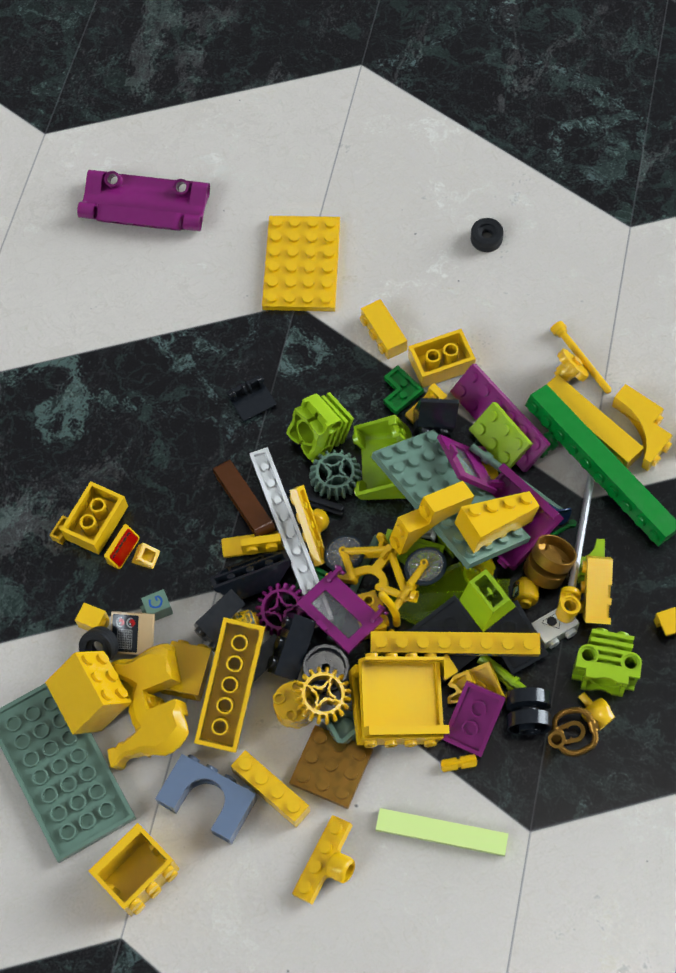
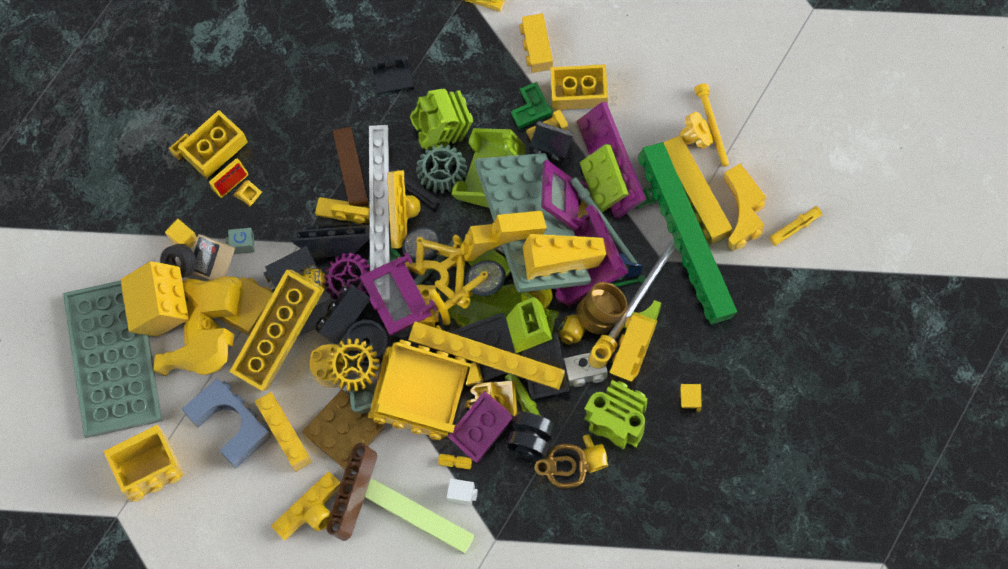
camera: 20 degrees right, 5 degrees up
(371, 837) = (351, 492): none -> reddish brown beam
(479, 793) = (461, 492): none -> white brick

